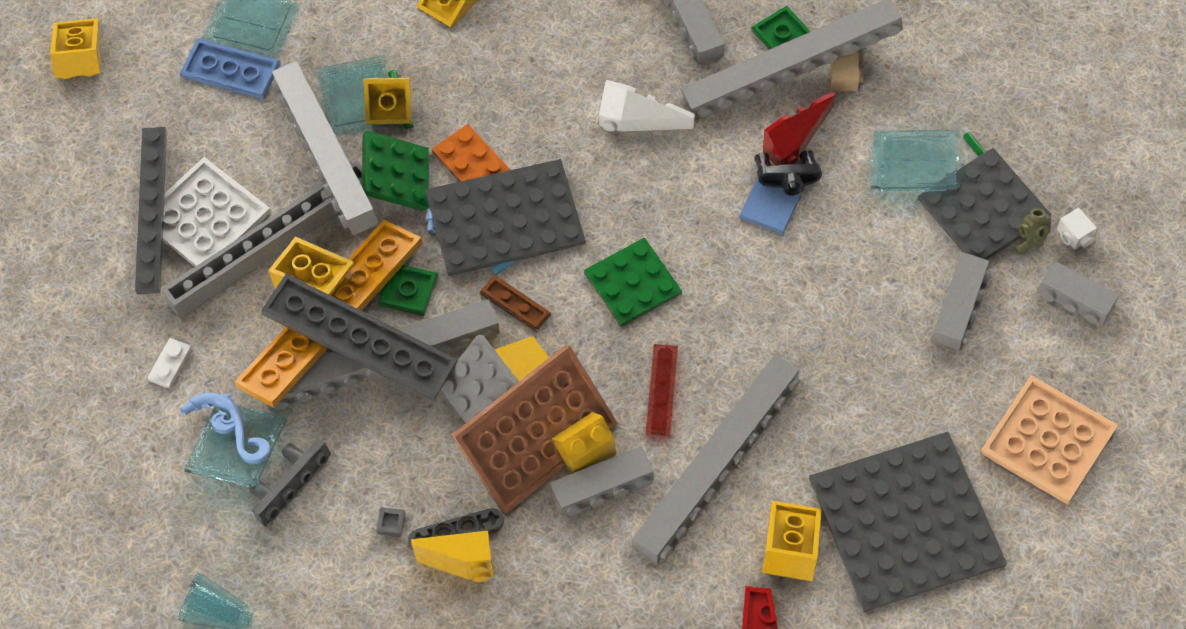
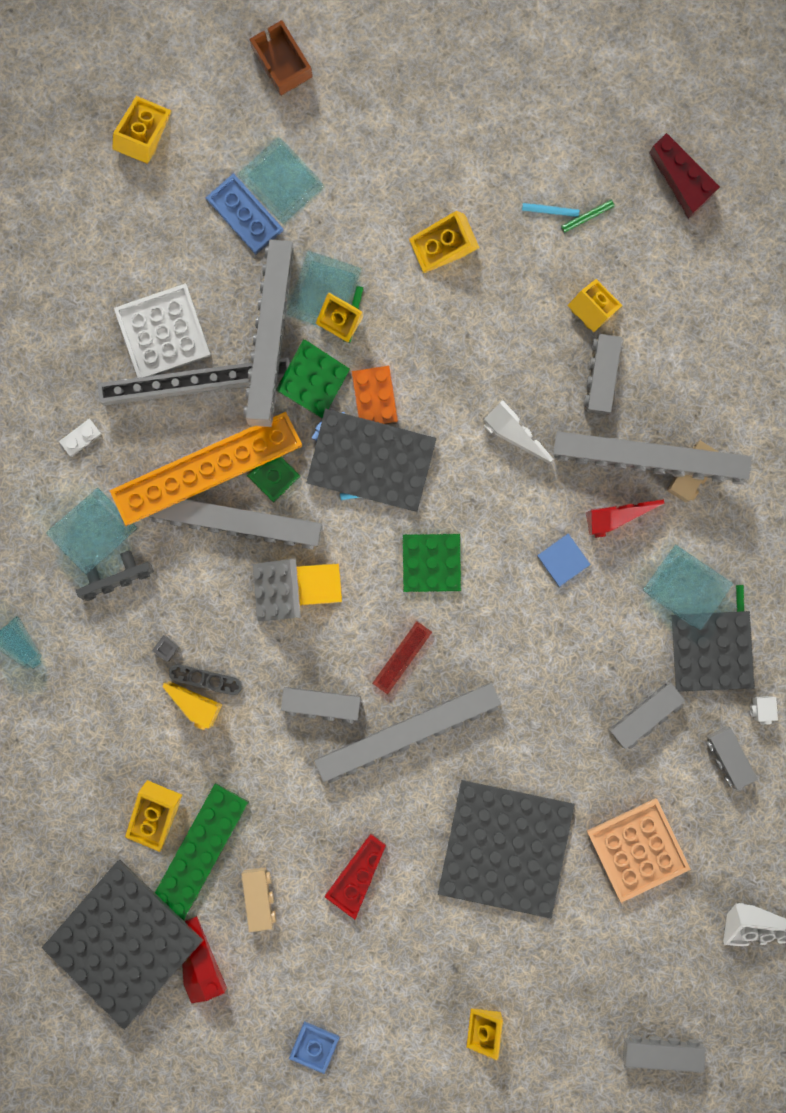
camera: 25 degrees right, 25 degrees up
(151, 211) = (125, 307): dark grey plate -> none
(224, 427) = (99, 516): light blue plant -> none
(311, 265) = (209, 428): yellow slope -> none
(359, 337) = (211, 505): dark grey plate -> none
(512, 436) = (293, 646): nougat plate -> none
(515, 303) = (341, 531): dark orange tile -> none
(585, 443) = (322, 672): yellow slope -> none
(779, 28) = (662, 421): green tile -> none
(789, 177) = (589, 549): black connector -> none
(792, 541) = (421, 819): yellow slope -> none
(1035, 228) = (734, 694): olive piece -> none

